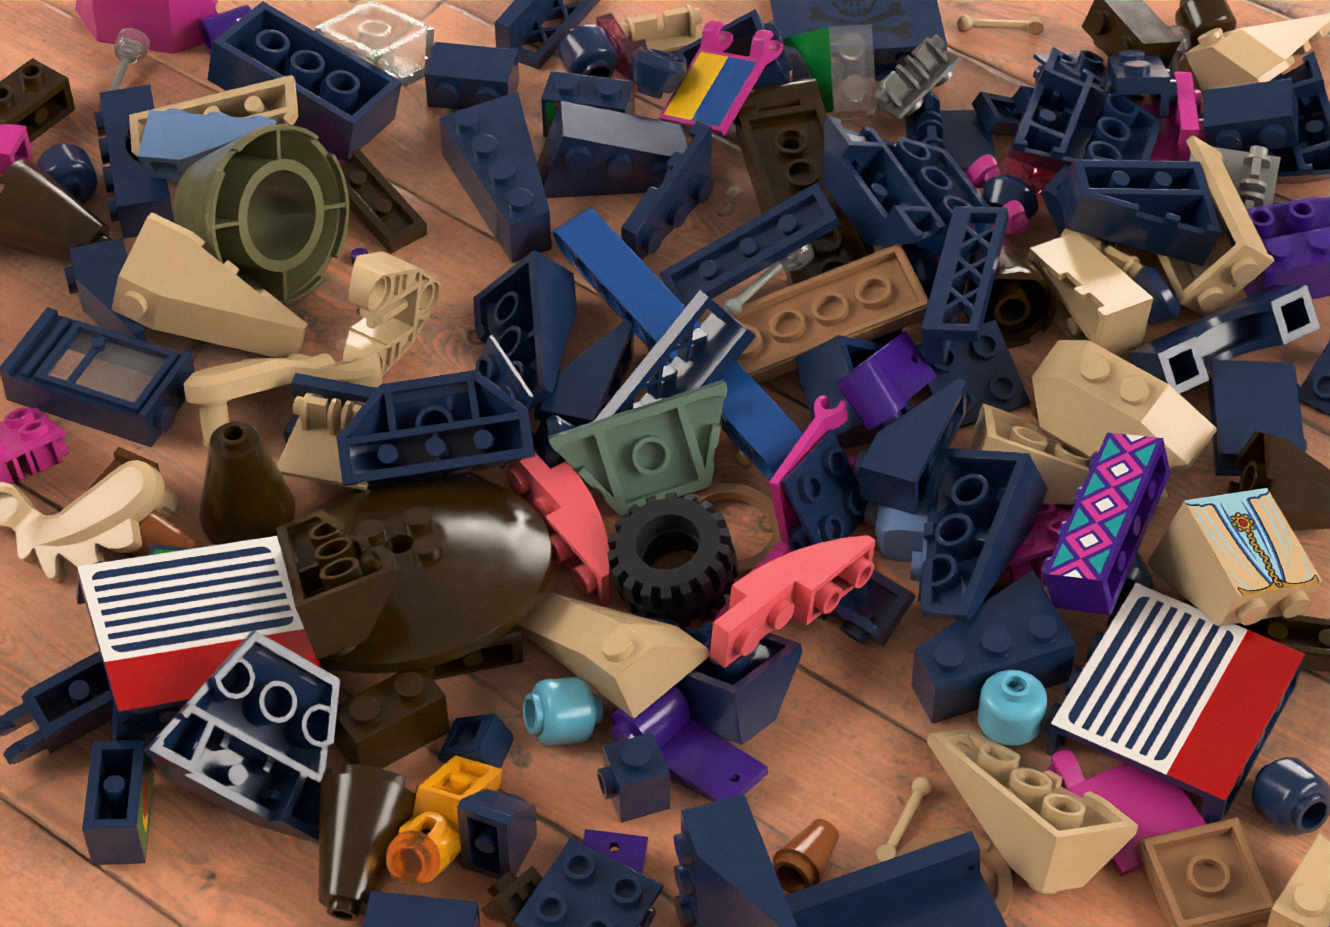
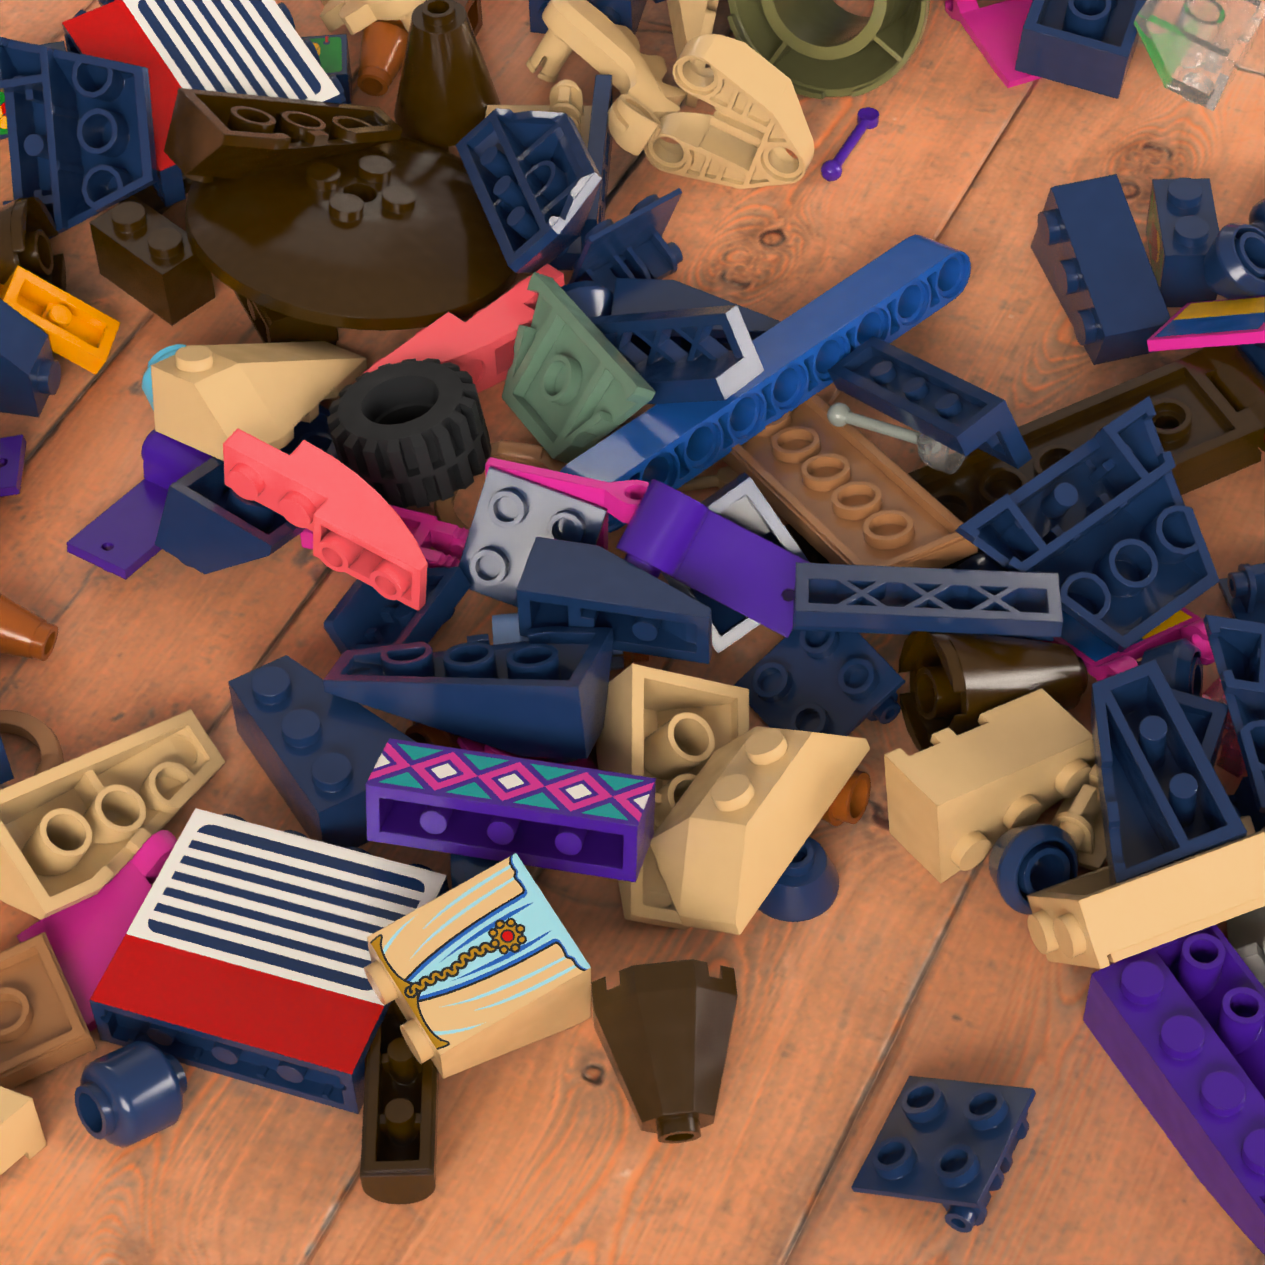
camera: 80 degrees right, 0 degrees up
(380, 204) = (951, 103): dark brown hinge -> none
(469, 75) = (1201, 133): dark blue brick -> none
(478, 739) = (141, 339): dark blue slope -> none
(498, 169) = (1002, 191): dark blue wedge -> none
(530, 319) = (781, 258): dark blue wedge -> none
(635, 777) = (94, 460): dark blue brick -> none
(683, 188) = (1046, 341): dark blue wing -> none
(921, 787) = (125, 725): tan hinge -> none
(1012, 707) = (234, 776): medium azure head -> none
(1251, 324) = (1013, 992): dark blue arch -> none
(1251, 399) = (834, 1017): dark blue piece -> none

